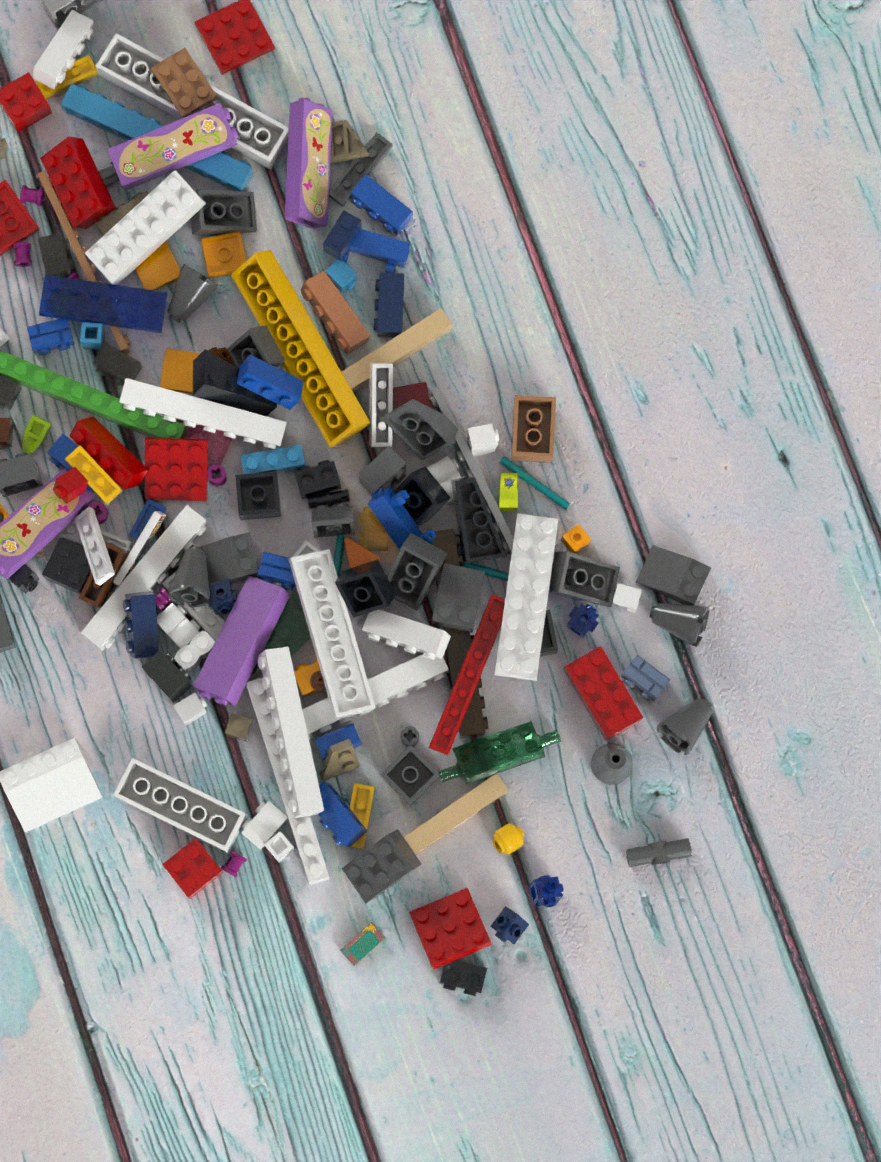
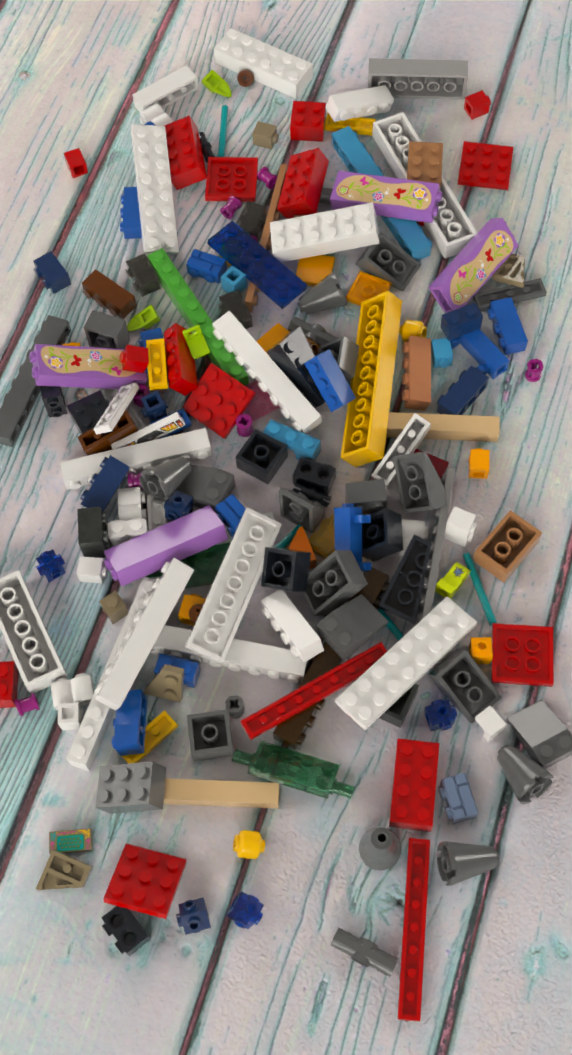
camera: 45 degrees right, 15 degrees down
(114, 428) = (196, 342): none -> lime bracket
(117, 511) = (153, 406): none -> dark blue brick
(157, 736) = (50, 565): none -> clear blue brick
(209, 337) = (314, 332): none -> dark grey piece
(299, 271) = (412, 328): none -> yellow head
(378, 971) = (63, 872): none -> dark tan wing
(442, 235) = (532, 368): none -> magenta bush
(453, 364) = (479, 463): none -> light orange brick
(611, 517) = (522, 655): none -> red plate
(683, 805) = (414, 930): none -> red plate

